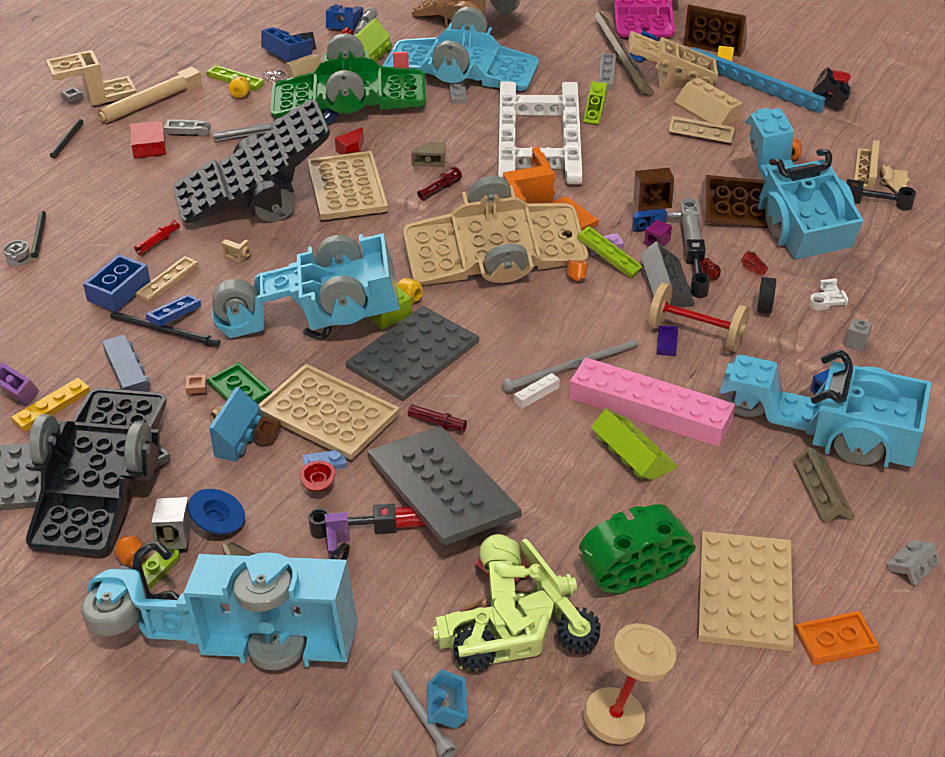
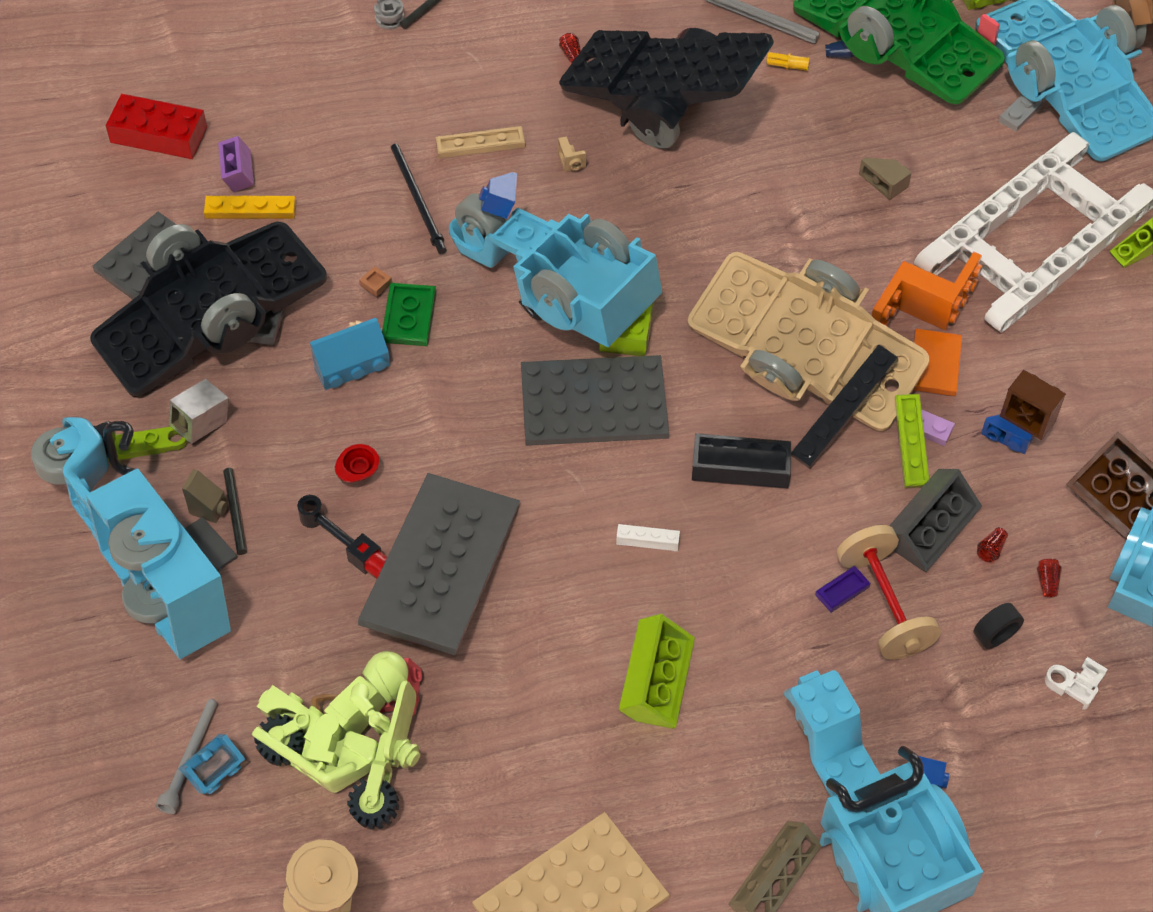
camera: 45 degrees right, 15 degrees up
(116, 282) = (426, 114): blue brick -> none
(125, 364) = (339, 216): brick -> none
(126, 549) = (149, 410): orange head -> none
(162, 232) = (521, 84): red pin -> none
(165, 203) = (570, 46): none -> clear red cone
(173, 310) = (441, 183): blue plate -> none
(216, 511) = (244, 428): blue hat -> none
(244, 270) = (499, 195): none -> blue slope
(266, 431) = (373, 380): reddish brown plate -> none
(328, 411) = (447, 403): tan plate -> none
(333, 457) = (391, 451): medium blue plate -> none
(337, 532) = (301, 527): medium lavender piece -> none
(347, 185) = (761, 152): tan plate -> none
(350, 142) = (826, 101): red slope -> none
(411, 288) = (665, 328): yellow head -> none
(444, 179) = (823, 219): dark red pin -> none
(444, 420) = (529, 497): dark red pin -> none
(508, 384) = (629, 510): light grey bar -> none
(535, 322) = (741, 460): none -> black slope
(558, 258) = (844, 406): none -> black plate
(577, 269) = (849, 438): orange plate -> none
(635, 551) = (507, 782): green piece -> none
(652, 401) = (732, 643): bright pink brick -> none
(658, 232) = (989, 460): magenta brick -> none
(695, 245) = (1008, 506): piece -> none
(858, 334) = (1037, 751): light grey brick -> none

